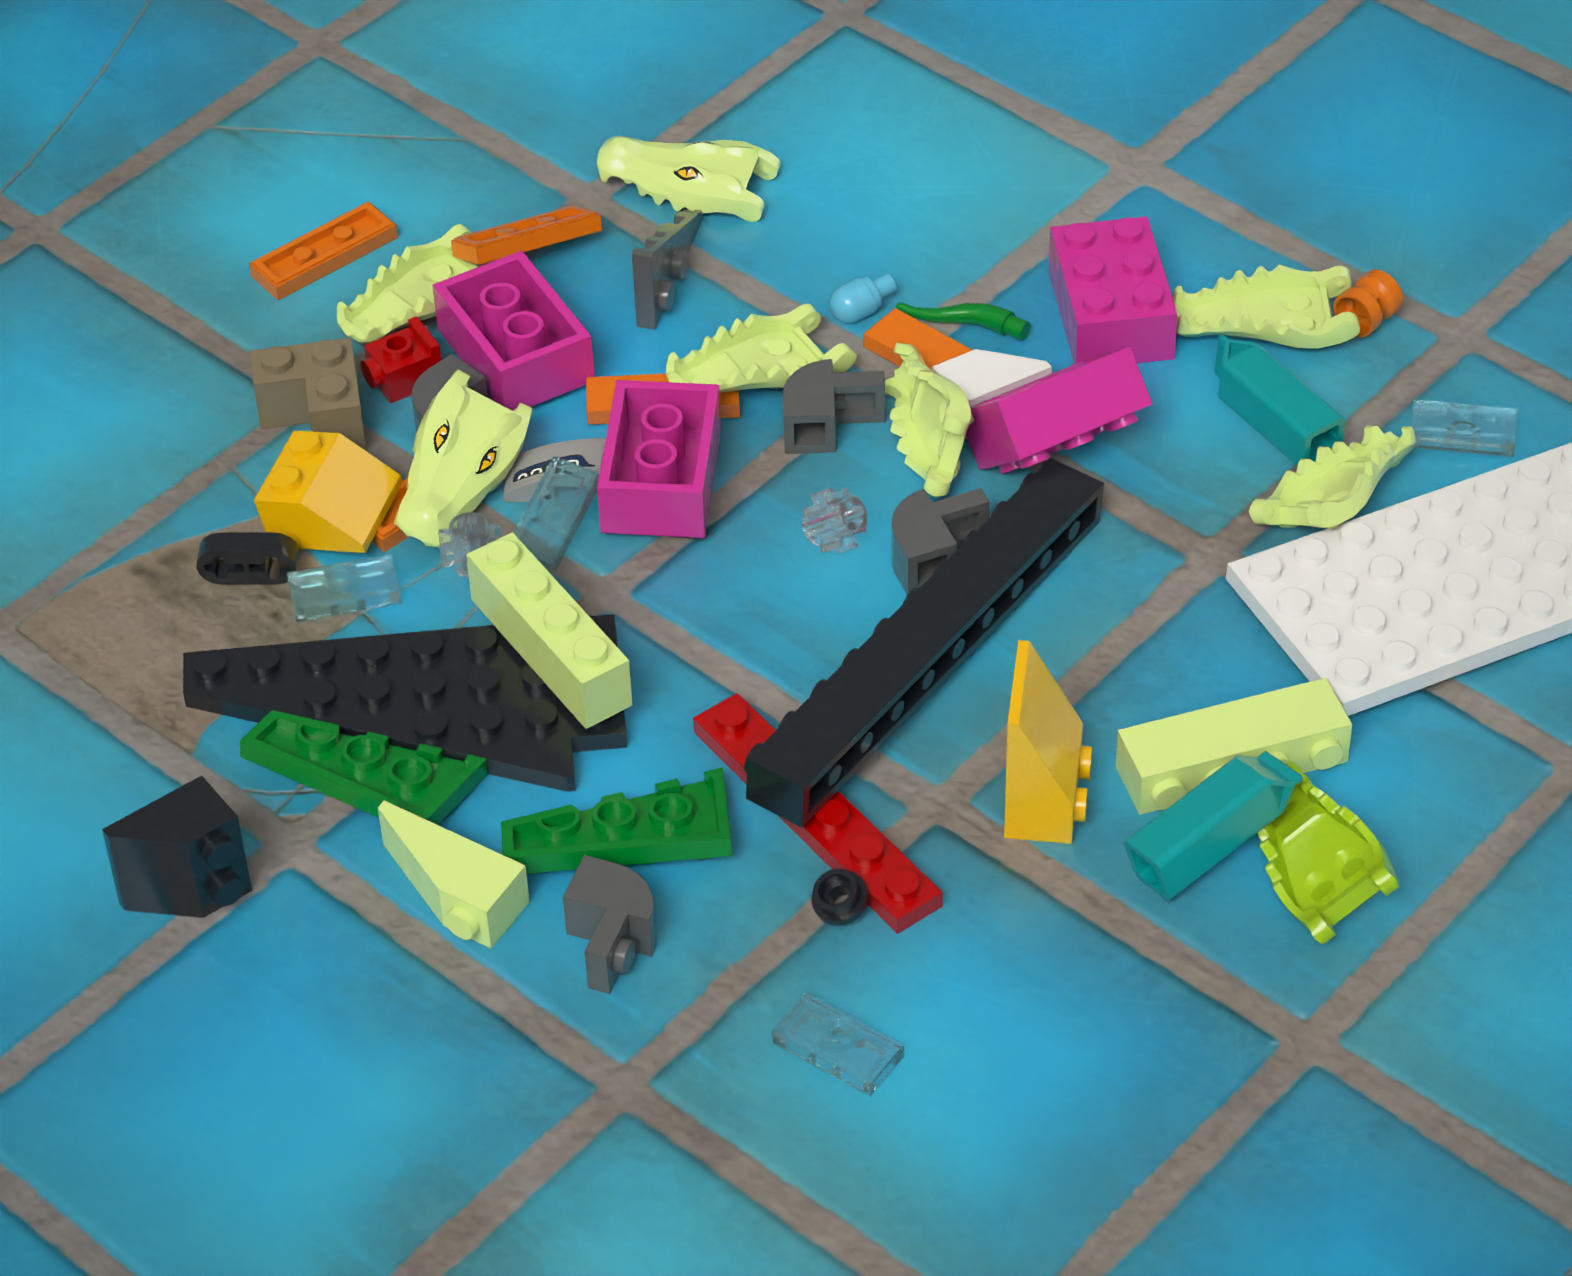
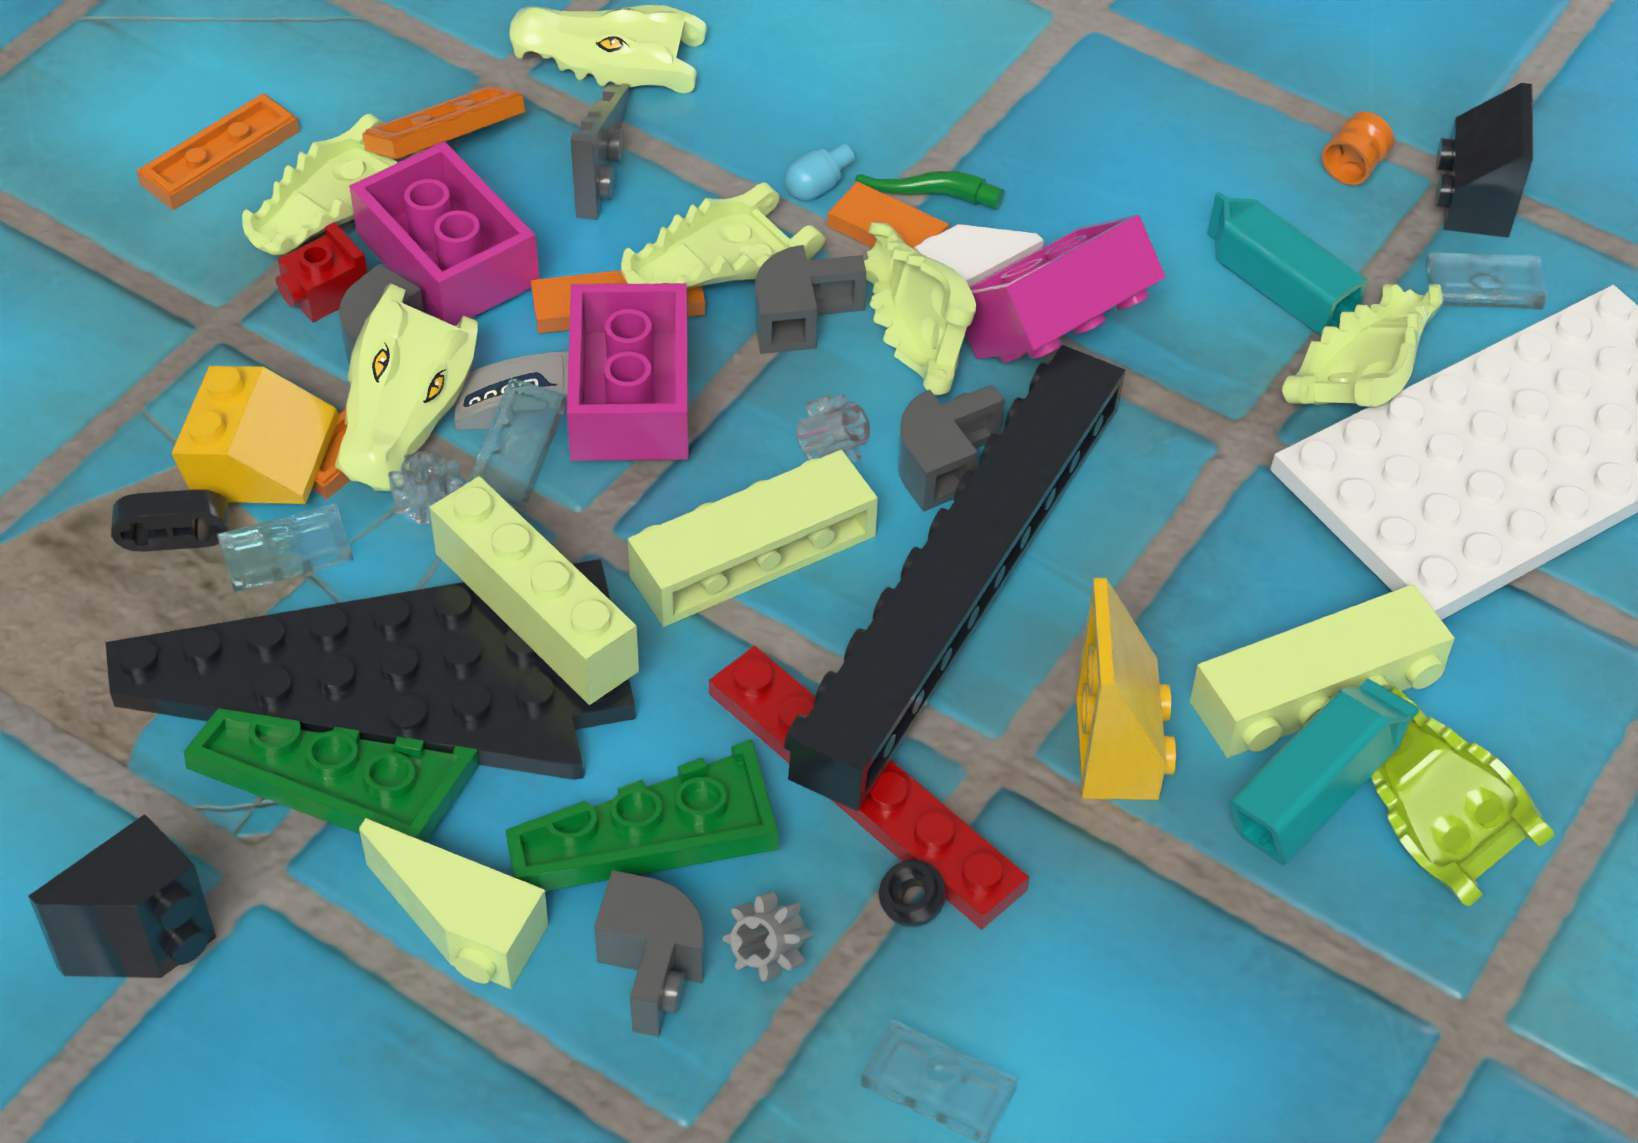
camera: 10 degrees left, 5 degrees up
(311, 386) = (222, 309): dark tan brick -> none
(709, 918) = (767, 936): none -> light grey gear
(749, 604) = (752, 537): none -> yellowish green brick
(1112, 289) = (1088, 149): dark pink brick -> none
(1270, 306) = (1255, 157): yellowish green animal -> none
(1481, 325) = (1487, 164): none -> black slope

